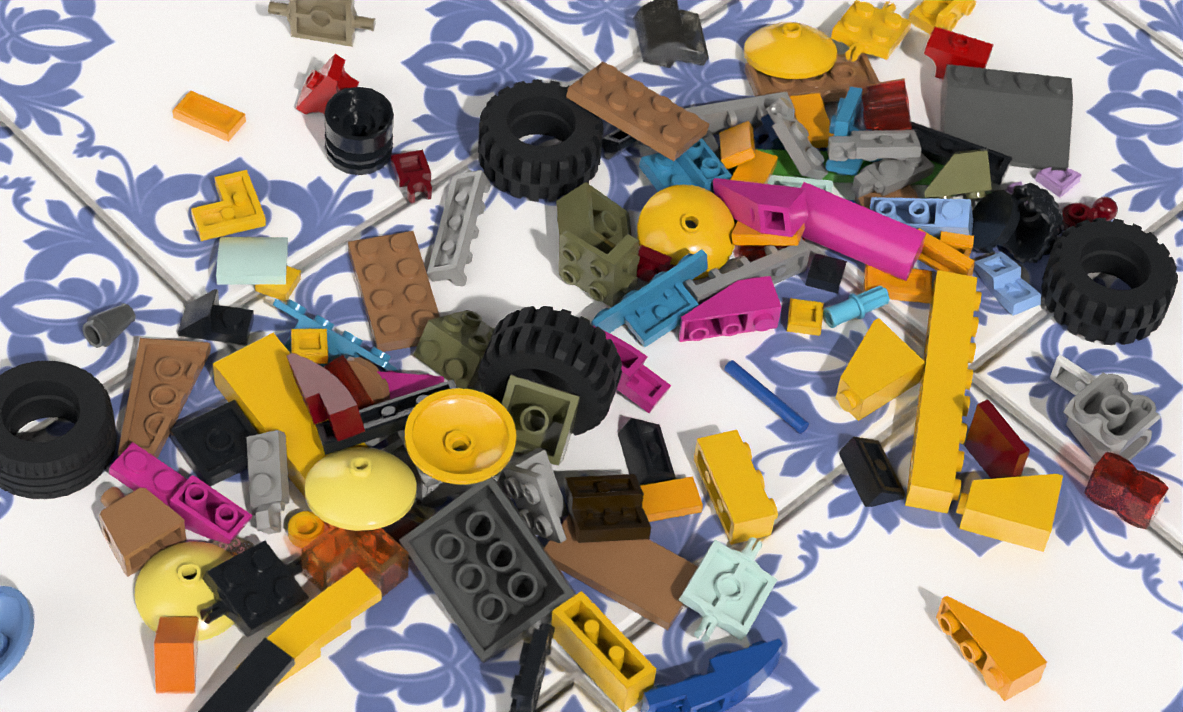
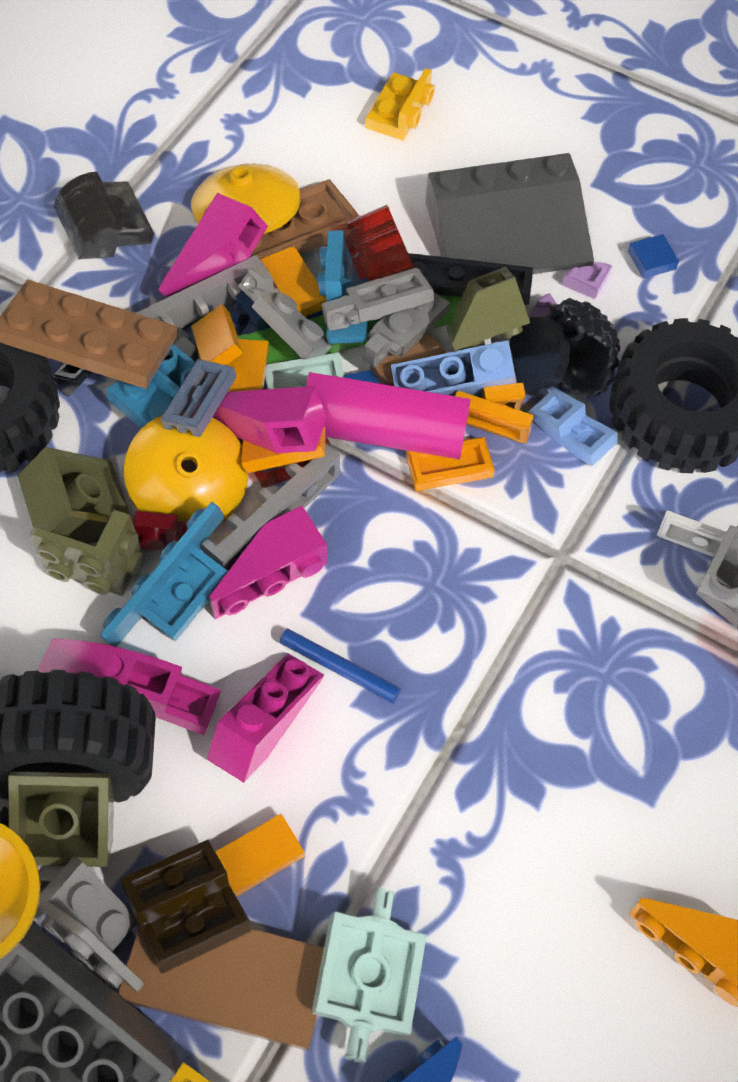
camera: 15 degrees left, 10 degrees up
(645, 452) = (215, 799): black slope -> none
(696, 410) = (262, 717): none -> dark pink slope
(717, 179) = (205, 397): none -> sand blue tile
(735, 486) = (338, 812): yellow brick -> none
(760, 73) = (219, 241): none -> dark pink slope
(805, 317) = (356, 540): yellow tile -> none
(826, 273) = (364, 474): black plate -> none
(856, 306) = (412, 510): medium azure axle -> none
(870, 30) = (328, 151): yellow plate -> none
(871, 472) = (493, 732): black slope -> none
(878, 372) = (463, 593): yellow slope -> none
(942, 393) = (546, 602): yellow brick -> none
(956, 49) = (432, 152): red brick -> none
(995, 443) = (636, 661): dark red tile -> none
(1012, 509) = (677, 735): yellow slope -> none
(1077, 212) = (649, 303): dark red plate -> none
(1120, 177) = (653, 256): none -> blue tile

